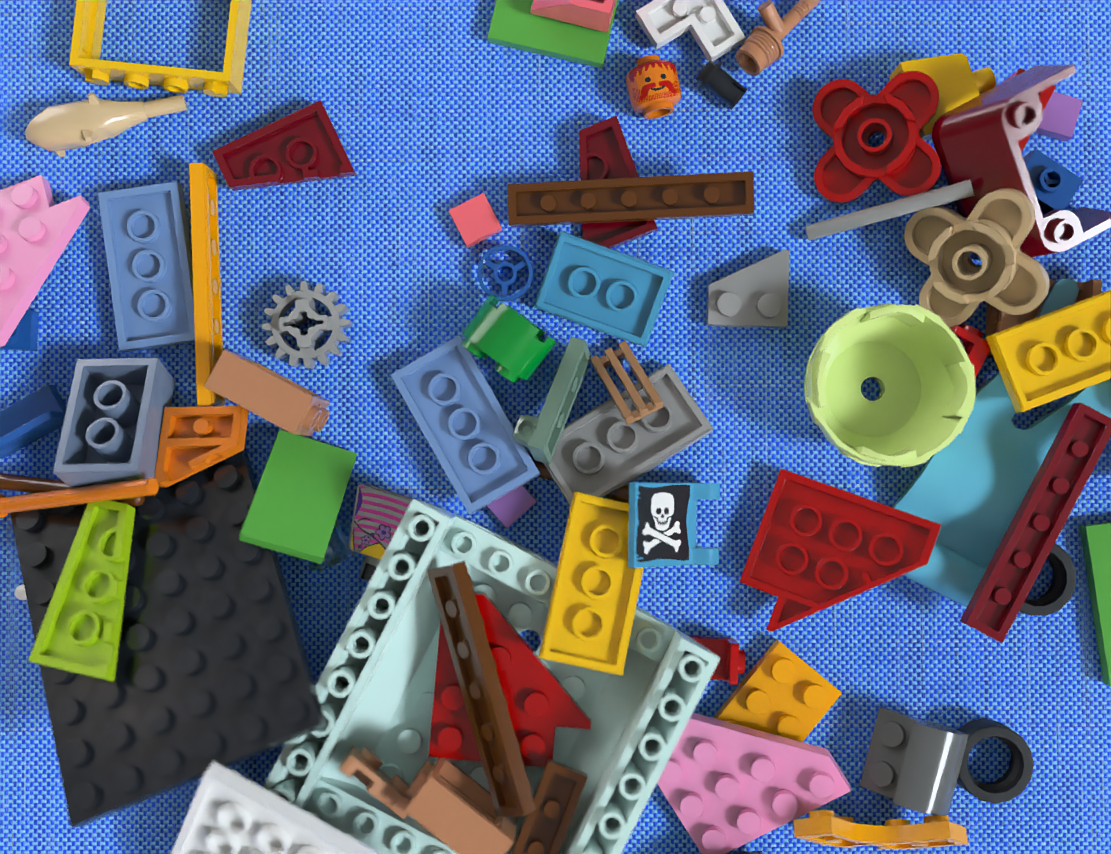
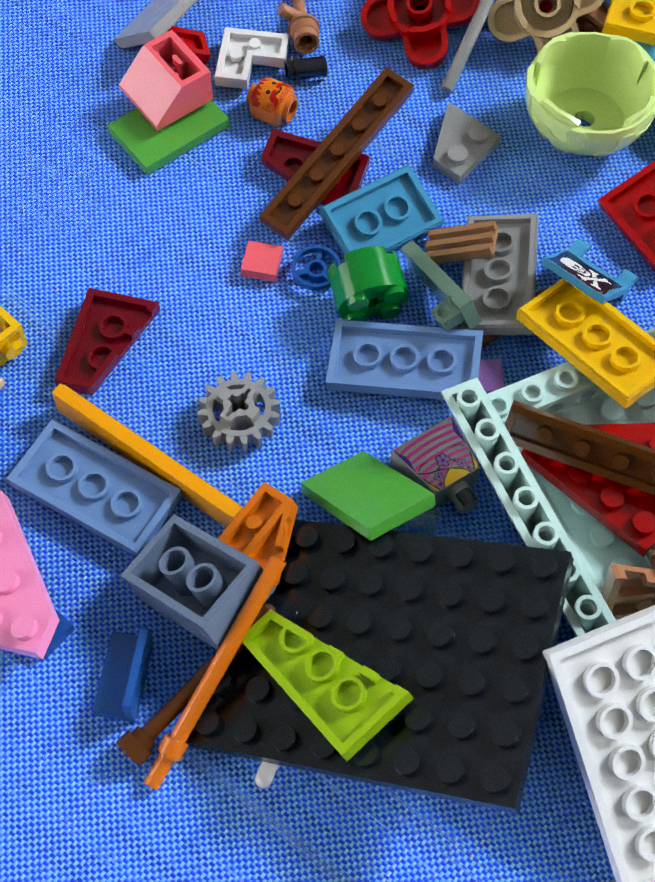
camera: 55 degrees left, 25 degrees down
(268, 394) = (275, 454): nougat window -> none

